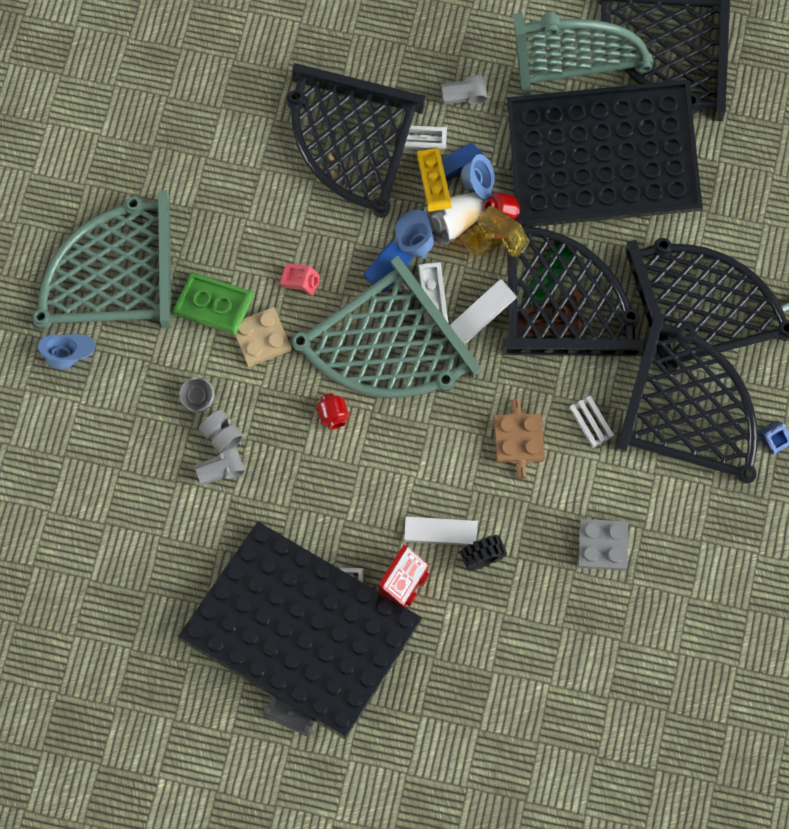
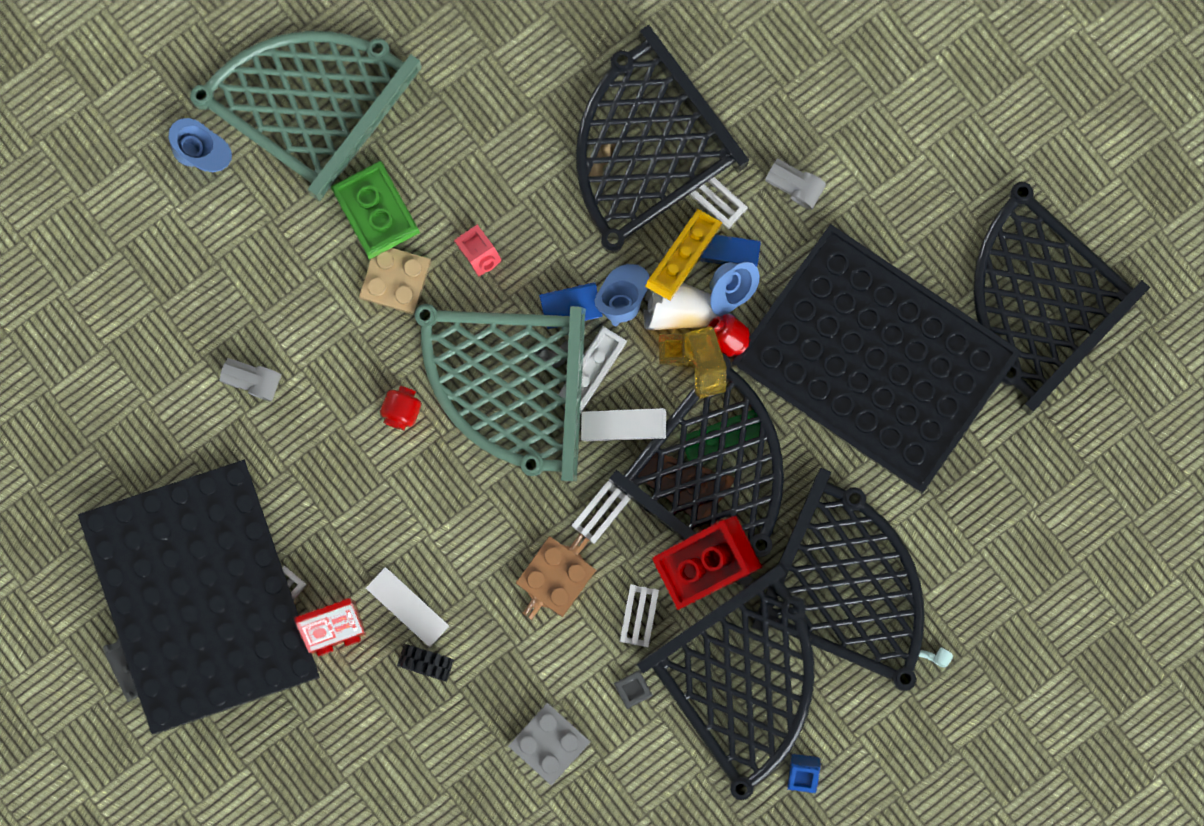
camera: 40 degrees right, 10 degrees up
(197, 394) = (286, 290): light grey hair -> none
(219, 430) = (278, 345): light grey wheel -> none
(513, 359) = (615, 493): none -> white tile
(553, 25) = (916, 230): sand green piece -> none
(608, 349) = (706, 562): none -> red slope
(626, 469) = (633, 689): none -> dark grey tile

